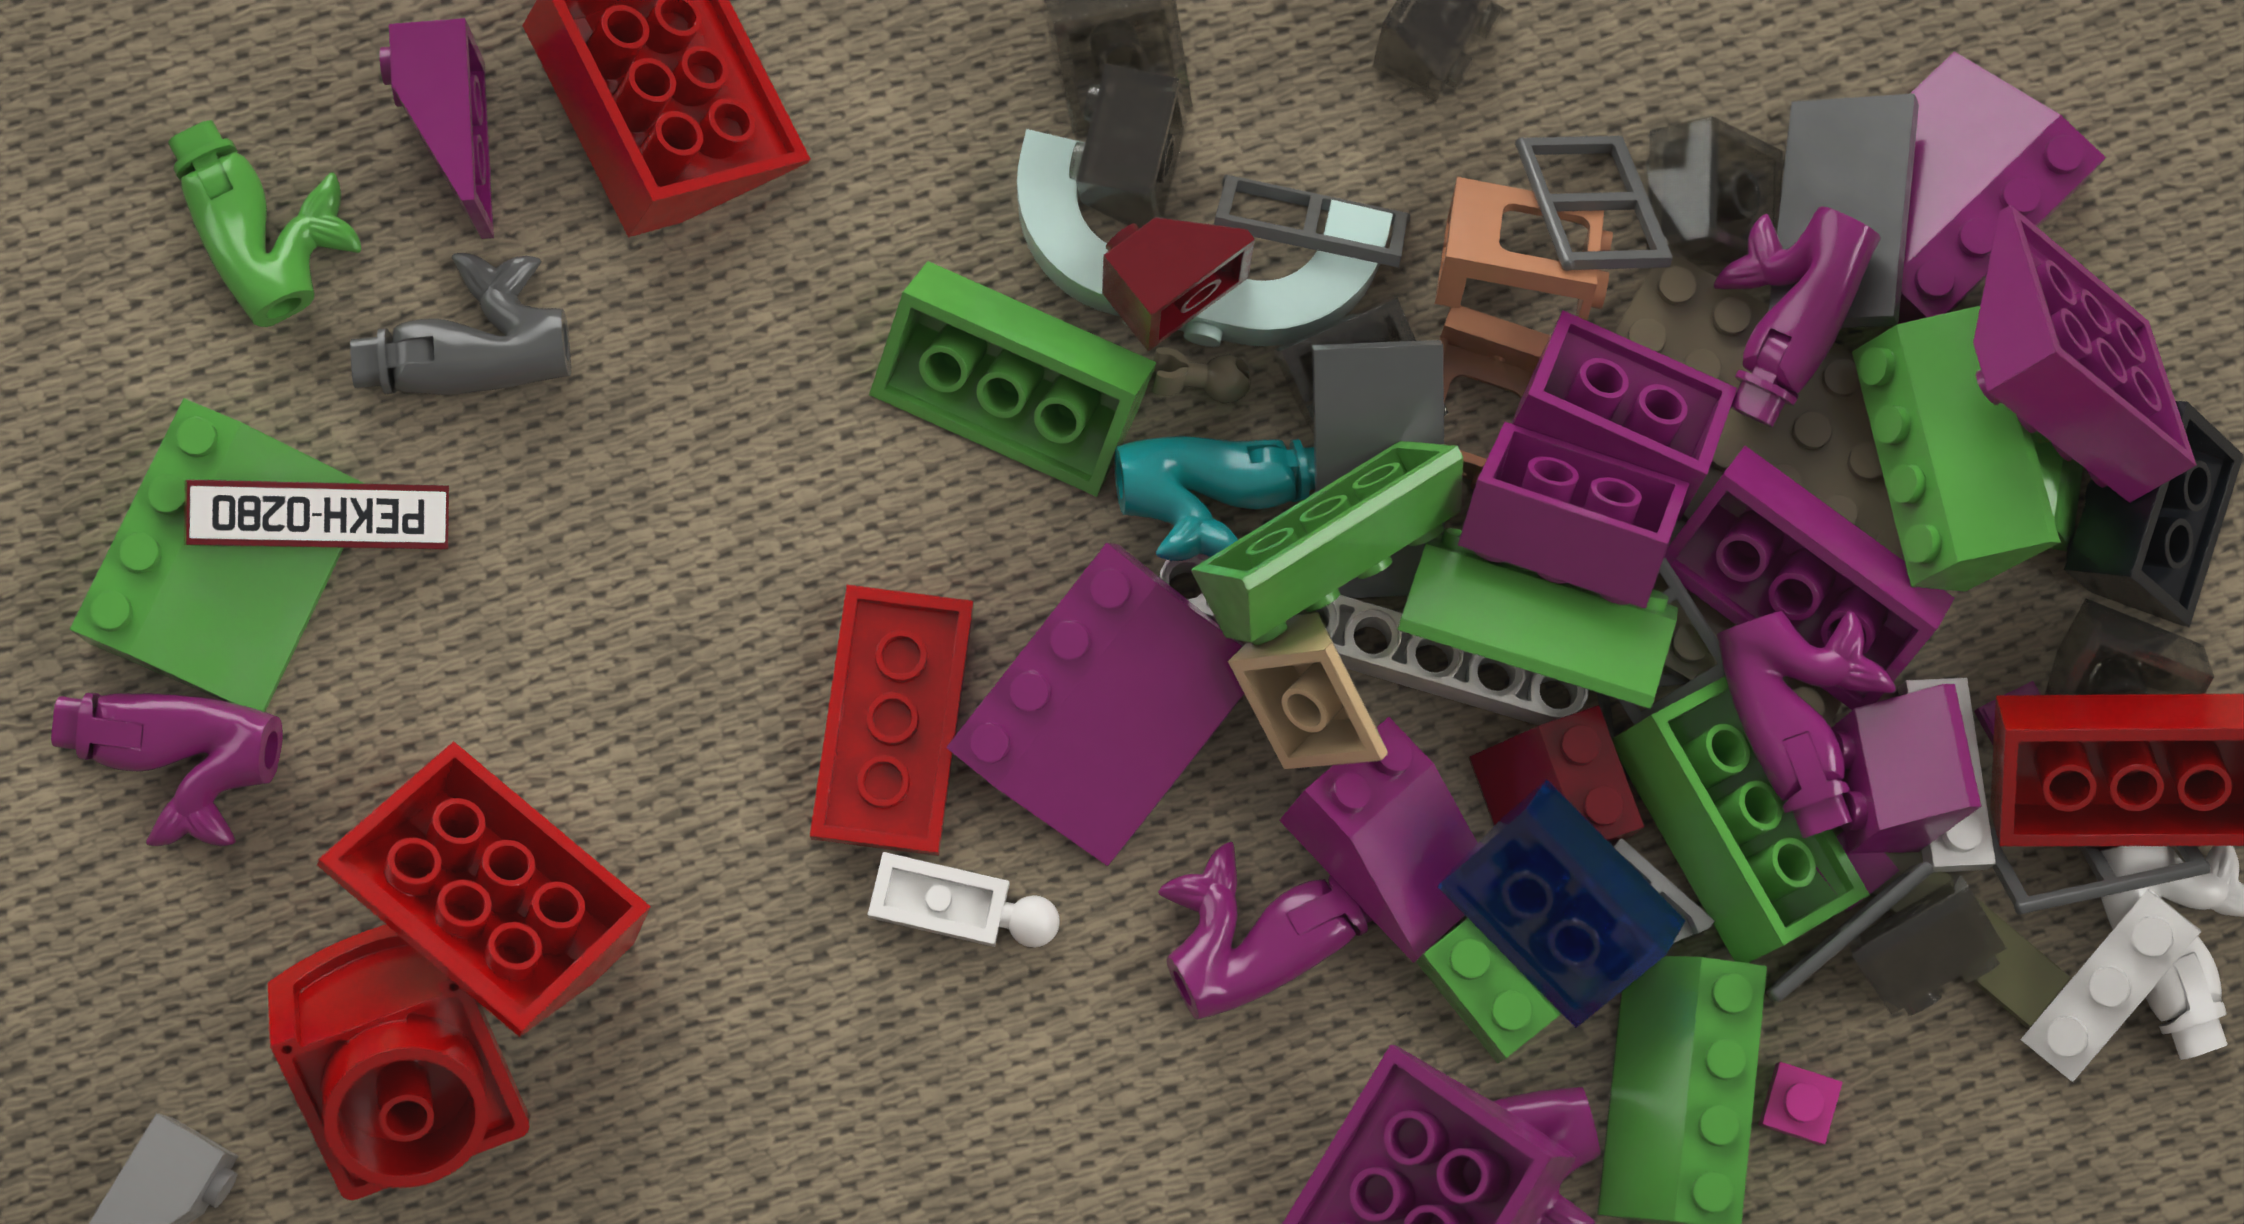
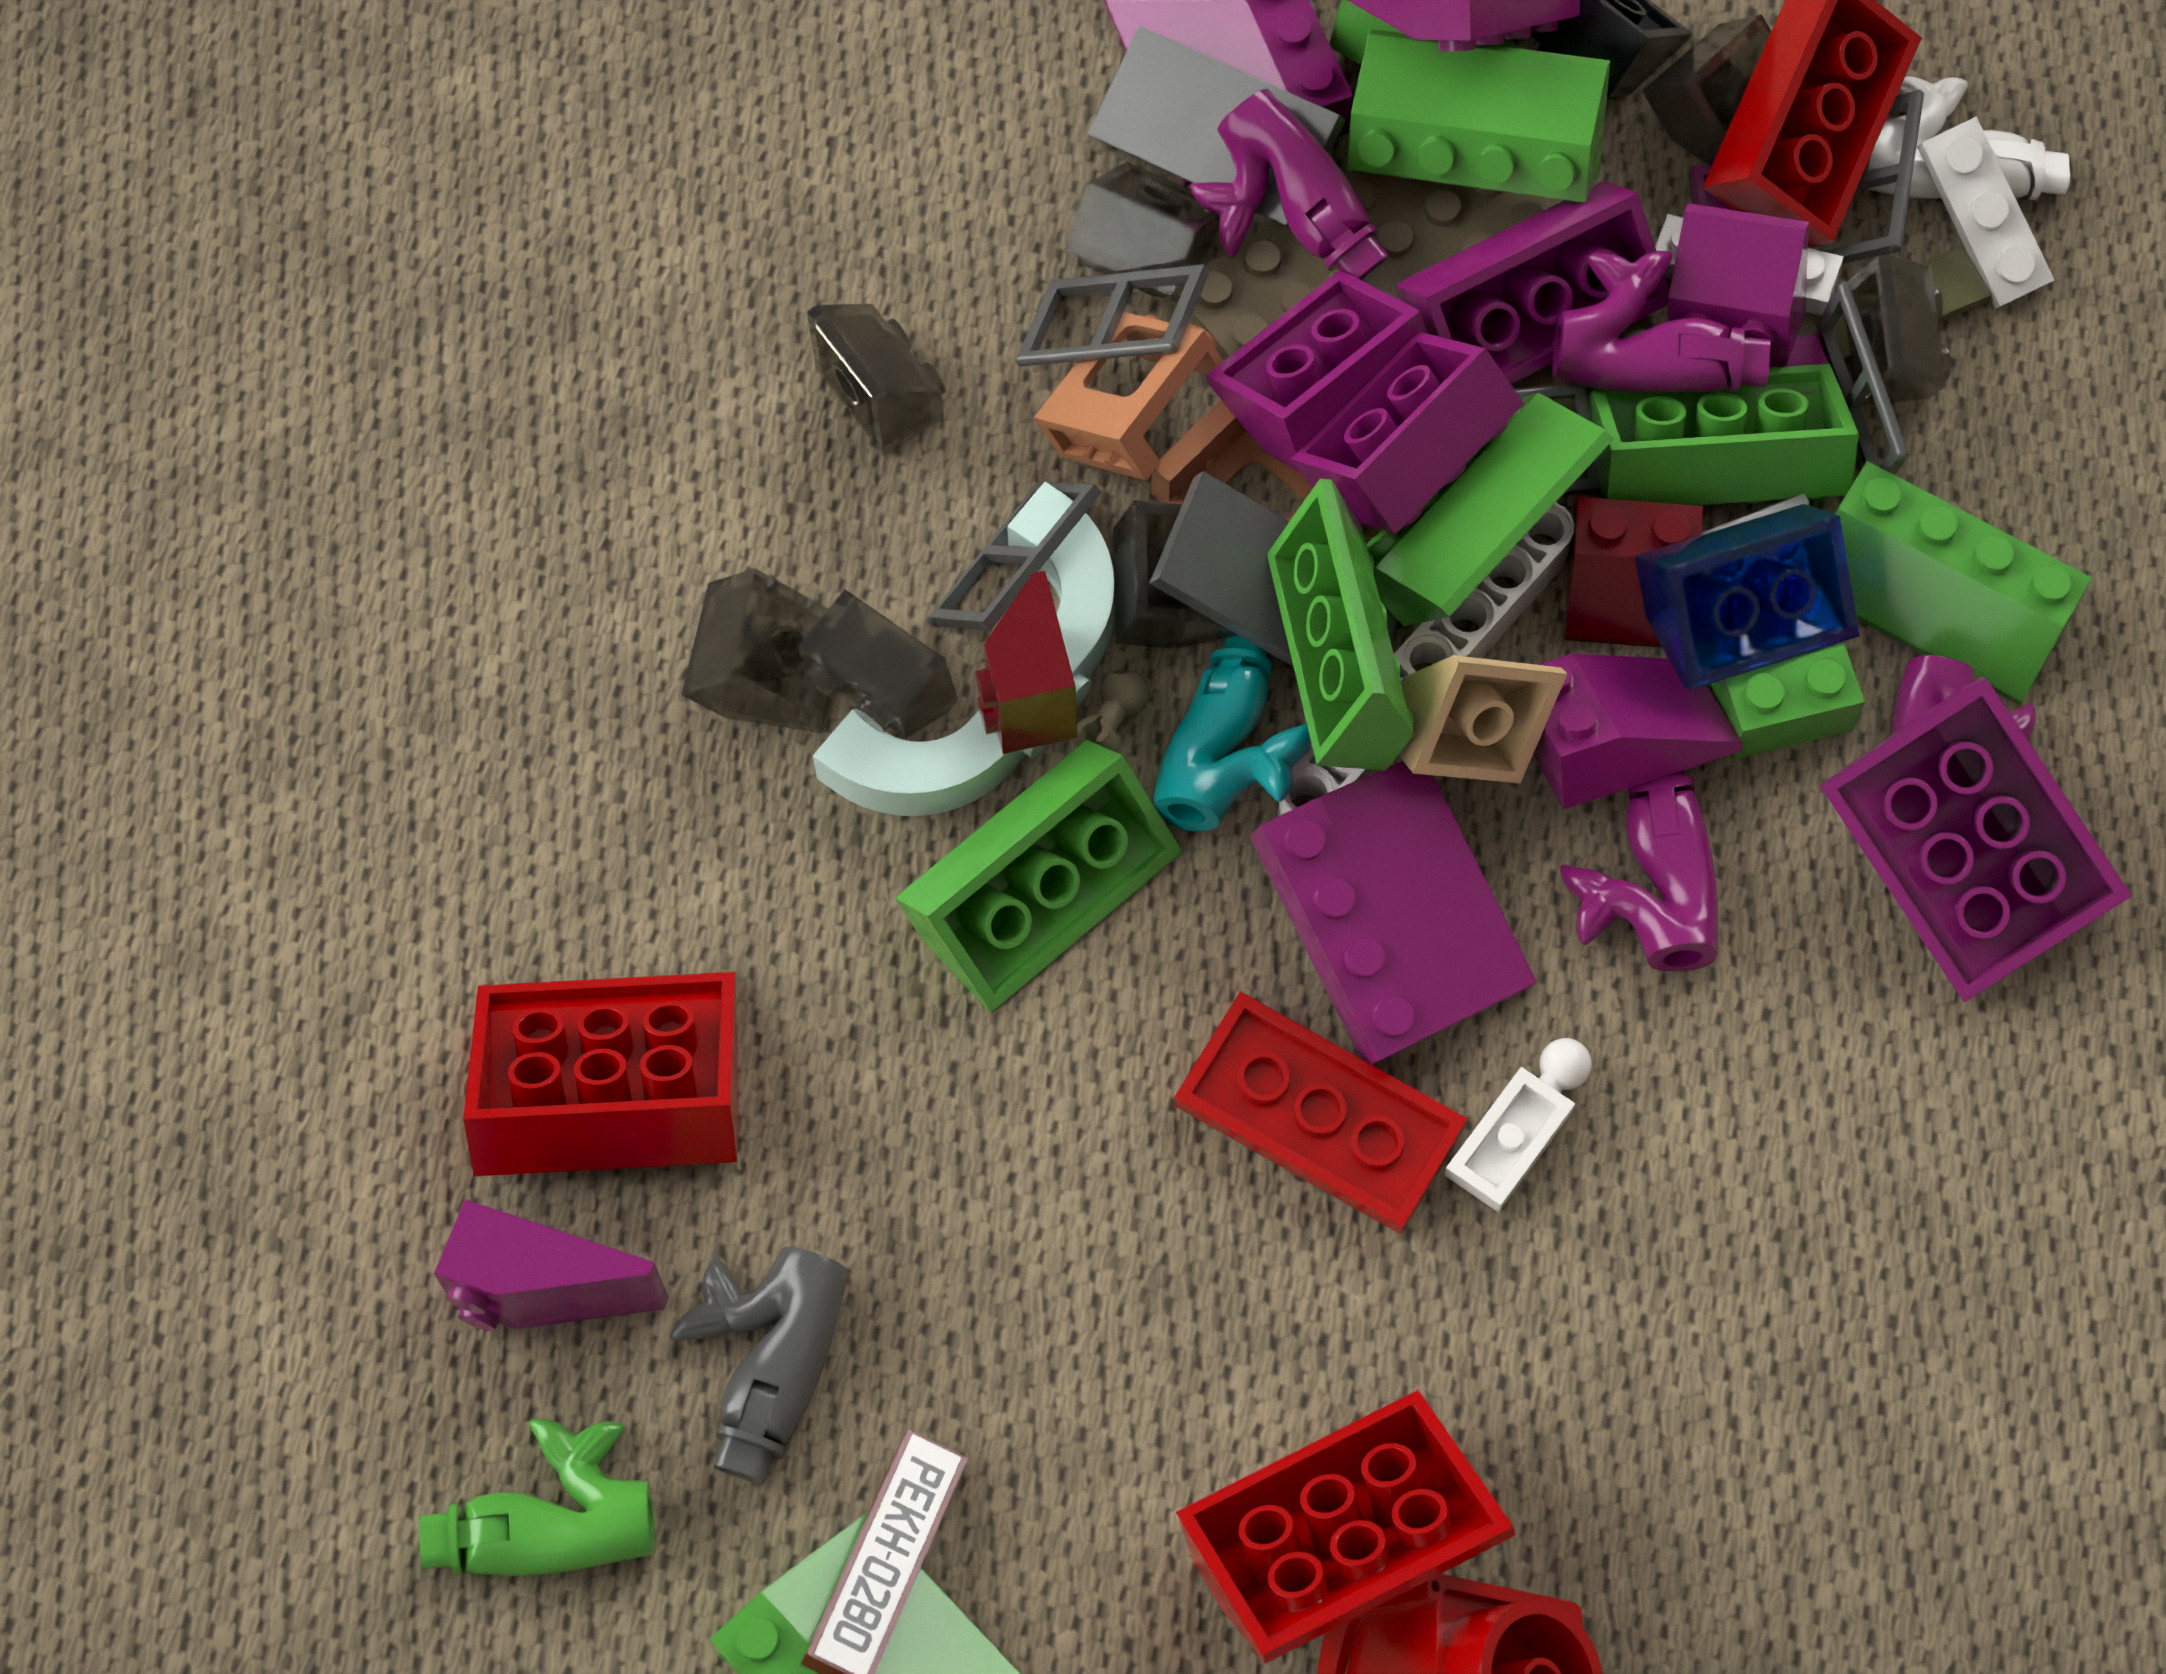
camera: 60 degrees left, 10 degrees down
(1800, 1103) = (1990, 495): dark pink plate -> none

